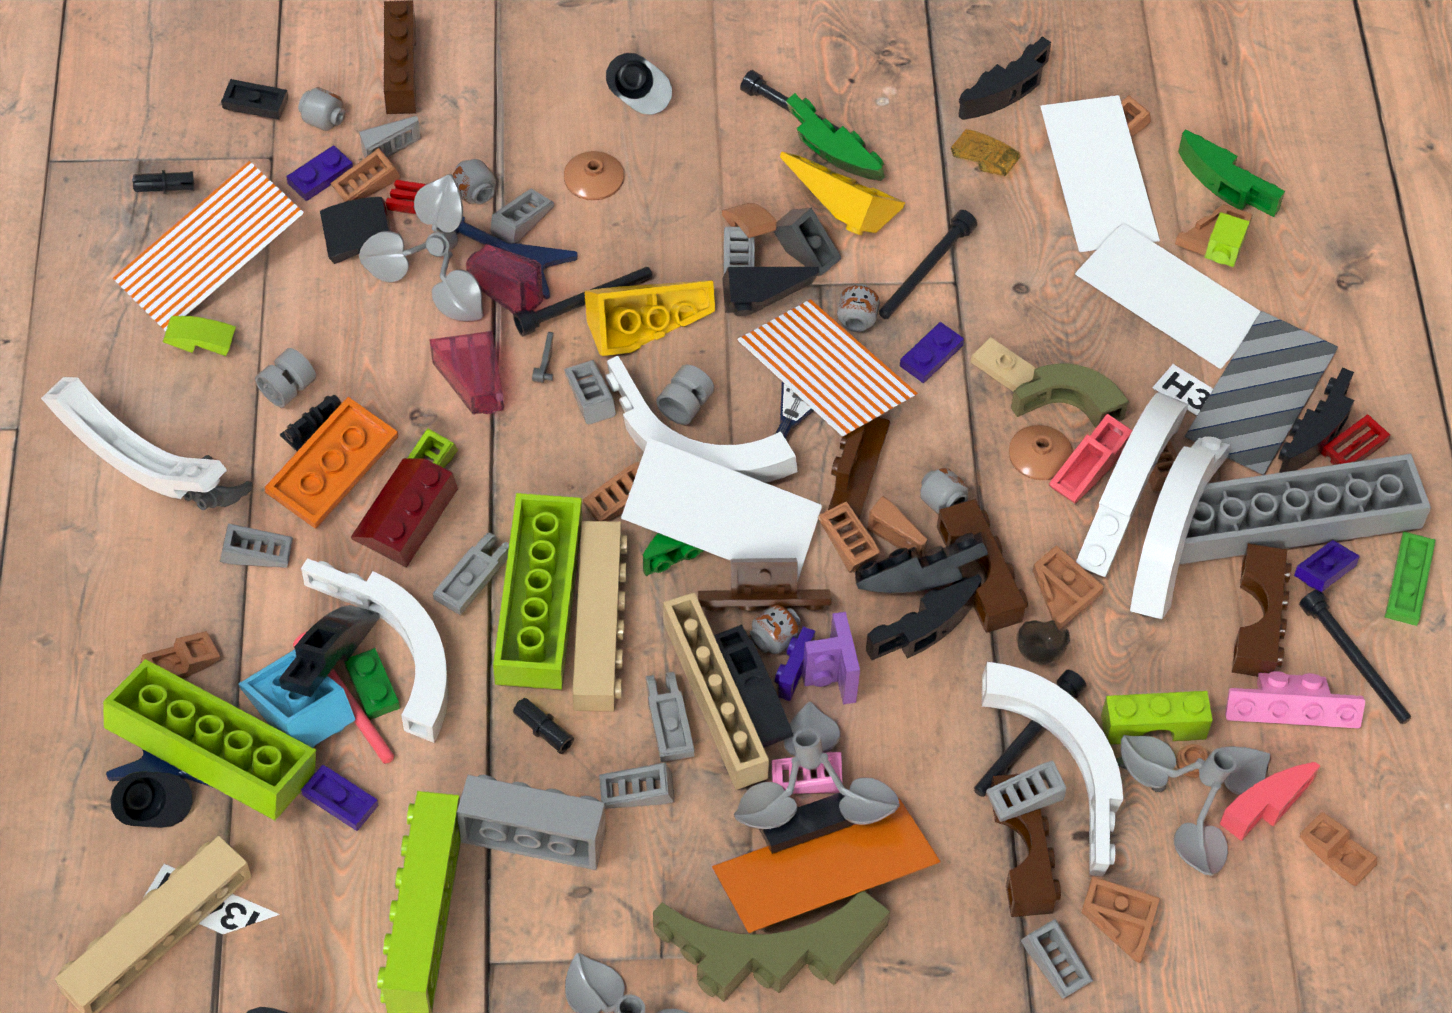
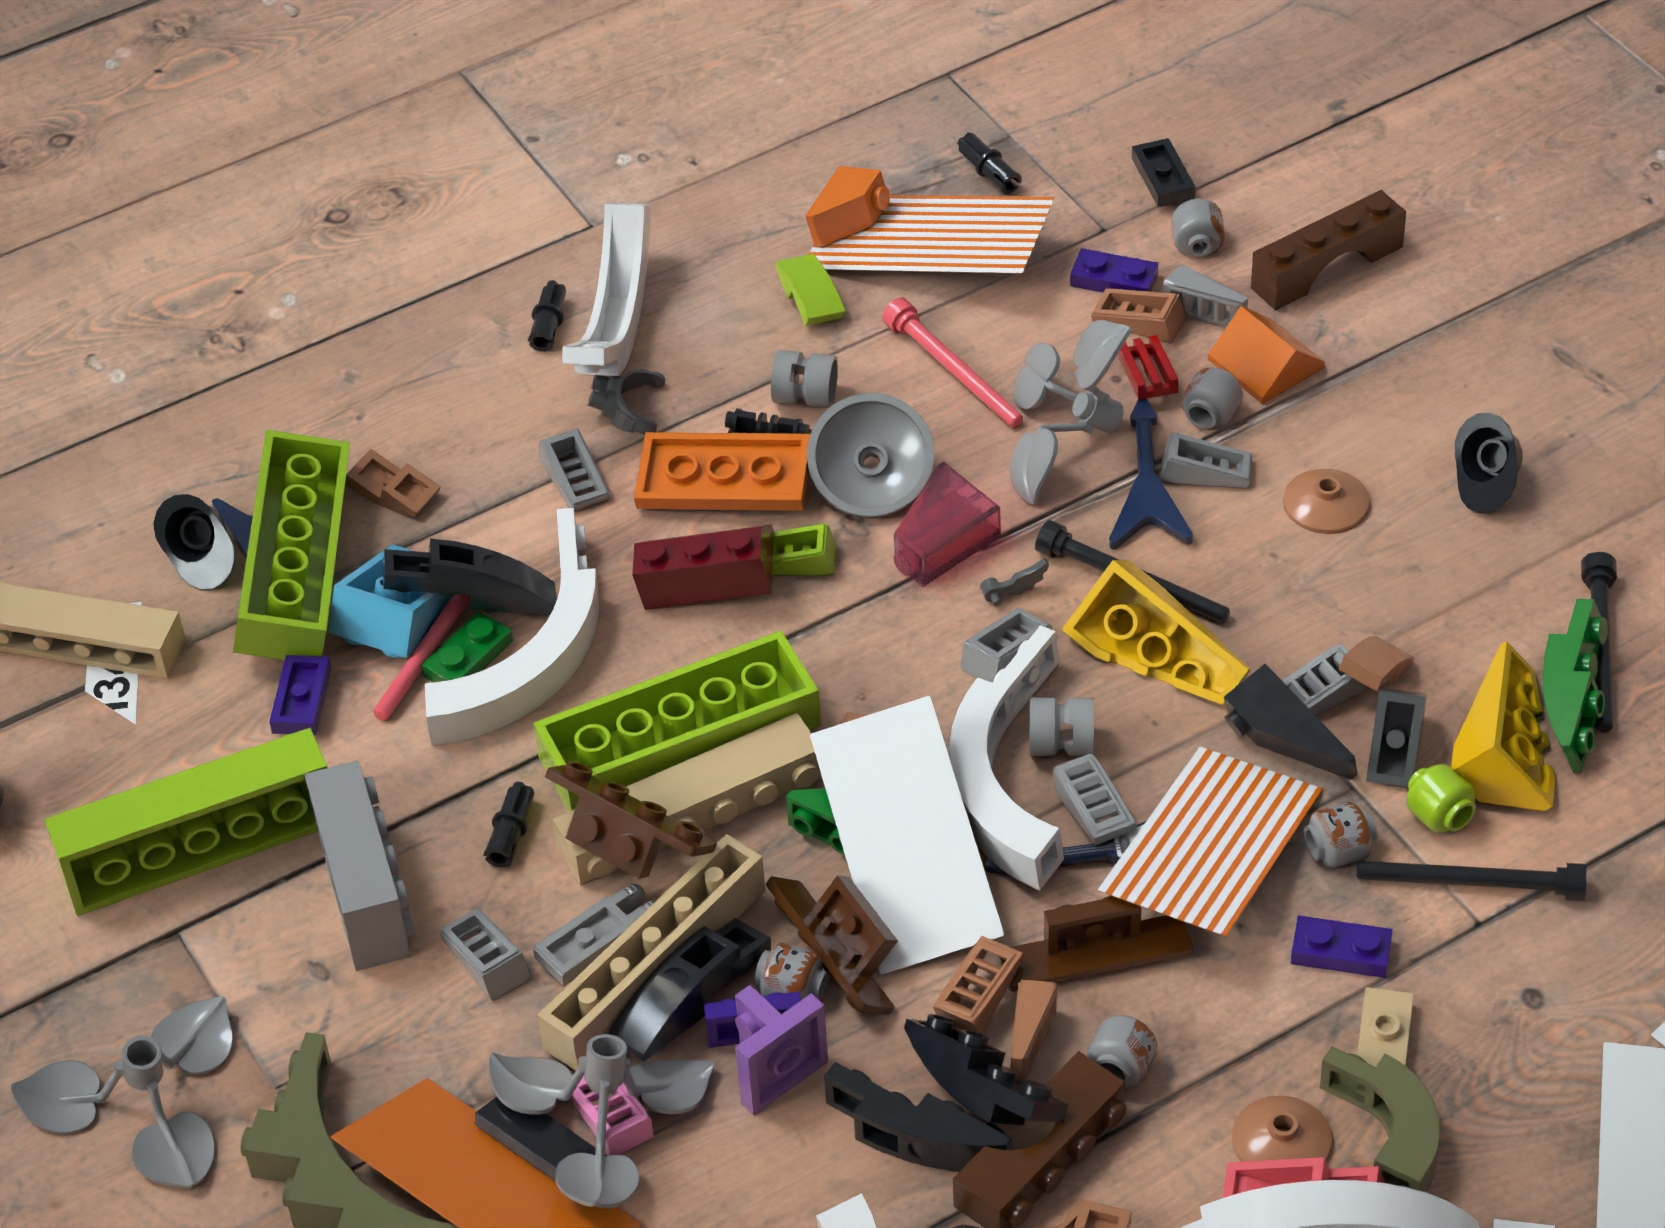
camera: 65 degrees right, 10 degrees down
(93, 494) = (547, 316): none -> black axle
(144, 271) = (847, 204): none -> orange slope
(270, 299) = (903, 318): none -> coral piece
(351, 225) = (1056, 324): black slope -> none
(401, 363) = (867, 428): none -> light grey dish
(456, 139) = (1262, 355): none -> orange slope
(471, 574) = (644, 659): light grey hinge -> none
(507, 278) = (1090, 490): clear pink slope -> none
(621, 654) = (621, 826): none -> reddish brown bracket
(739, 419) = (1092, 796): none -> light grey slope
(869, 246) = (1441, 798): none -> lime head

